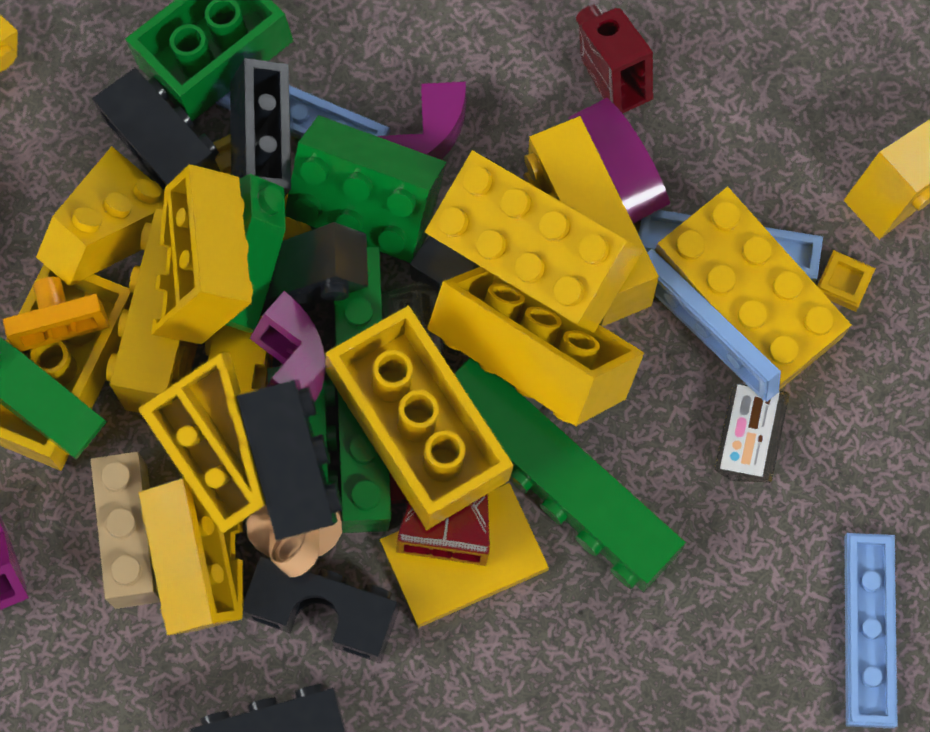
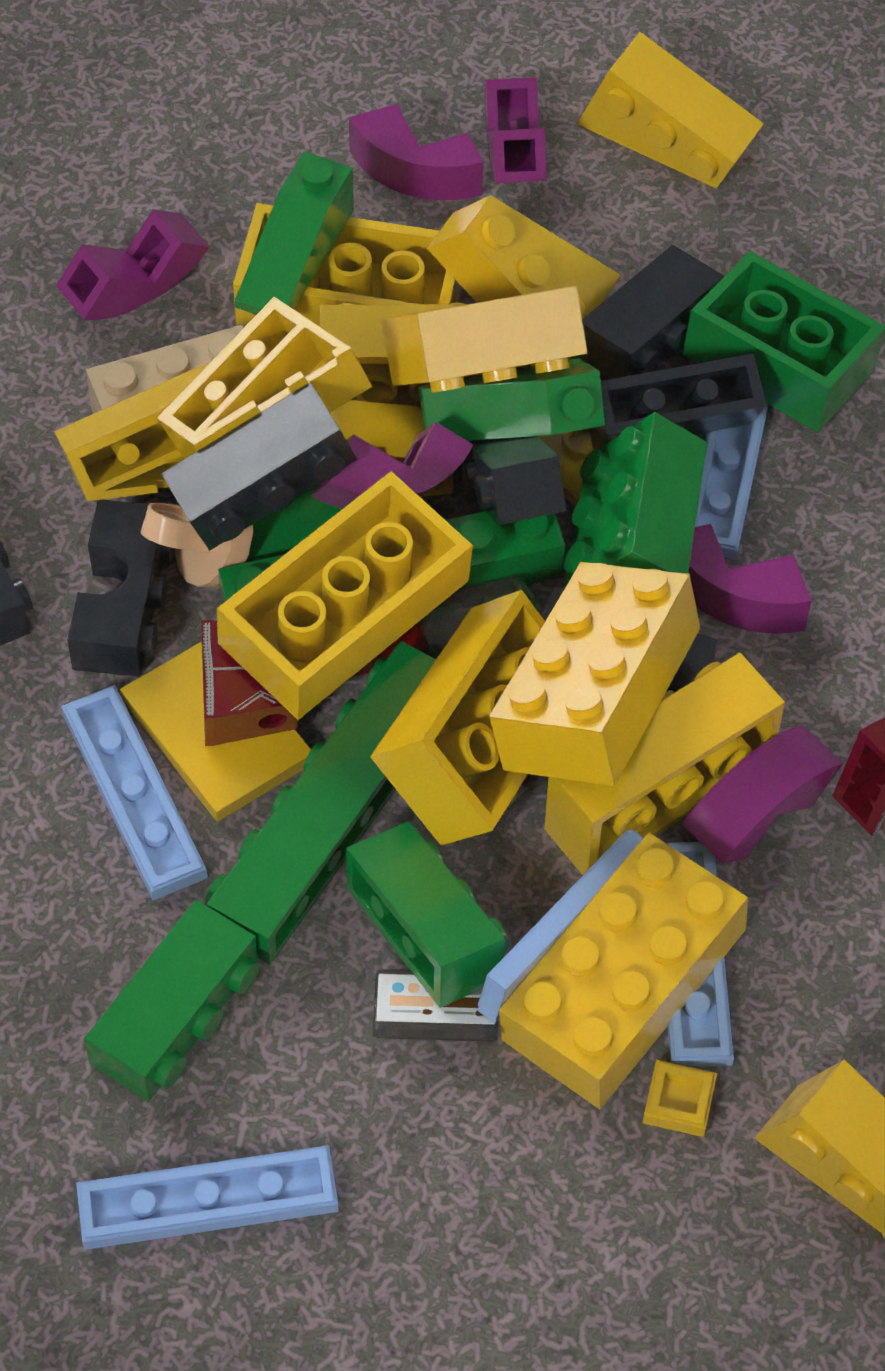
camera: 75 degrees right, 15 degrees down
(55, 318) = (387, 246): light orange tile -> none
(510, 630) = (134, 792): none -> light blue tile
(680, 421) = (425, 912): none -> green brick
(713, 625) = (173, 1001): none -> green brick

